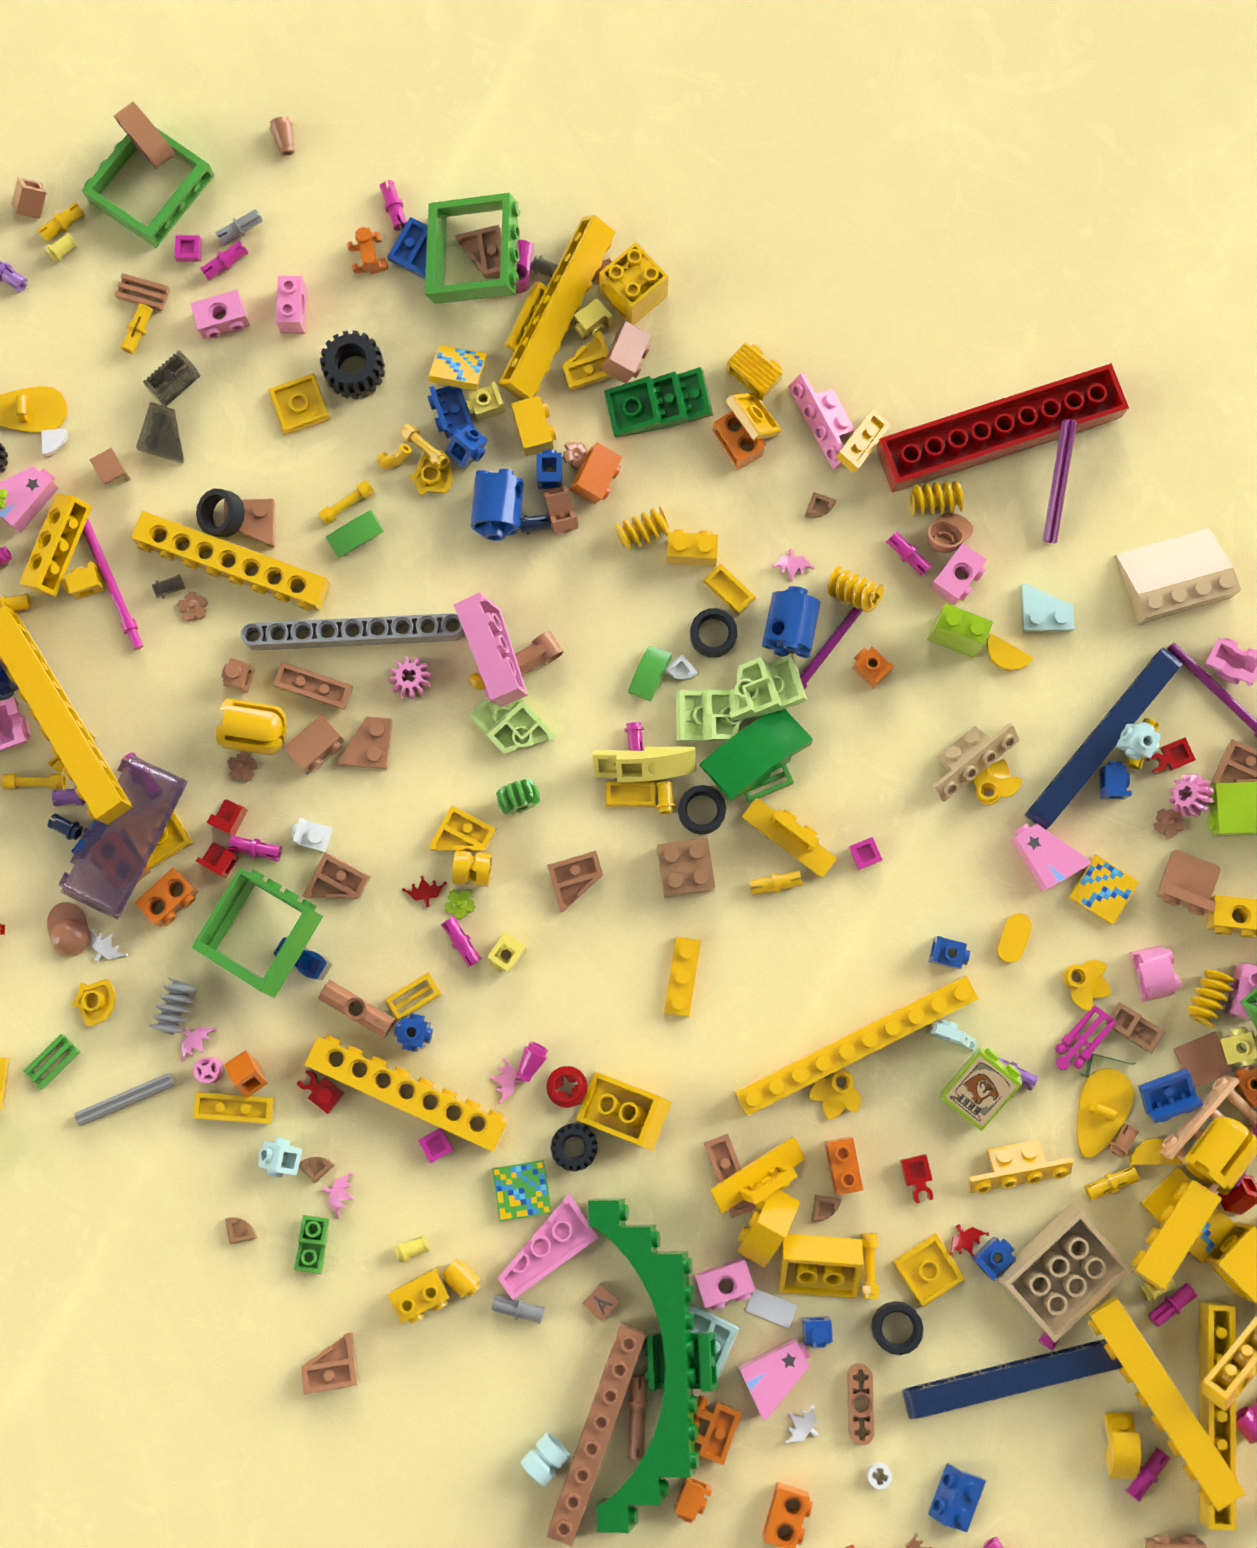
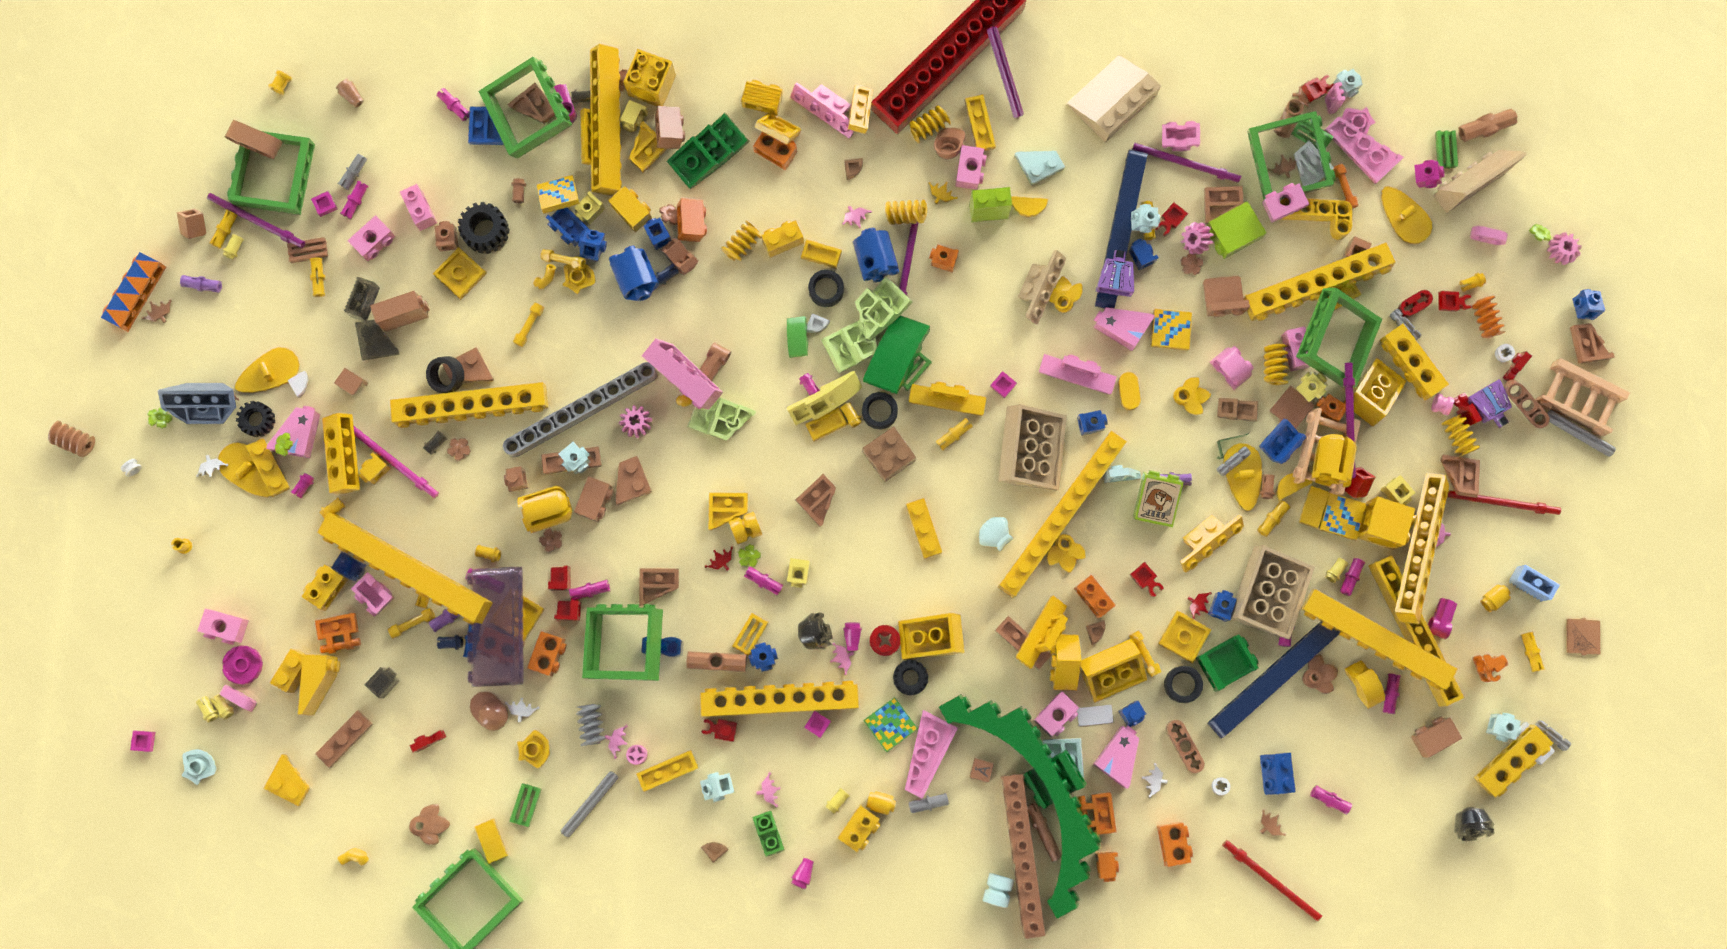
camera: 30 degrees left, 0 degrees up
(125, 263) = (284, 235): none -> magenta bar
(162, 745) = (488, 553): none -> yellow pin
(207, 413) = (400, 311): none -> nougat brick
(211, 85) = (280, 82): none -> yellow bush
(246, 1074) = (664, 743): orange brick -> none
(305, 361) = (447, 242): none -> nougat brick
(311, 835) = (624, 561): white bracket -> none
(313, 678) = (572, 452): none -> light aqua brick
(316, 1167) = (744, 781): medium nougat tile -> none
(326, 1314) = (802, 875): none -> dark pink cone
(331, 1368) = (824, 907): nougat wing -> none
(354, 534) = (546, 343): bright green slope -> none
(365, 245) = (454, 146): orange piece -> none
(415, 341) = (518, 190): none -> nougat pin
(488, 1034) = (814, 632): none -> clear smoke cone
(518, 796) = (752, 464): bright green gear -> none
(764, 1026) = (995, 533): none -> light aqua animal
(861, 947) = (1032, 447): none -> tan slope
(908, 553) = (929, 170): dark pink pin -> none
(909, 587) = (941, 193): none -> yellow piece
(963, 885) = (1078, 372): none -> bright pink bracket
(965, 1329) = (1227, 662): none -> green panel
(998, 526) = (980, 122): none -> yellow plate
(1063, 1062) = (1202, 456): dark pink piece -> none
(1069, 793) = (1117, 276): none -> medium lavender torso
(1074, 1405) = (1322, 673): none -> nougat plate
(1097, 1088) = (1233, 461): none -> light grey axle
(1176, 1234) = (1331, 528): yellow brick -> none

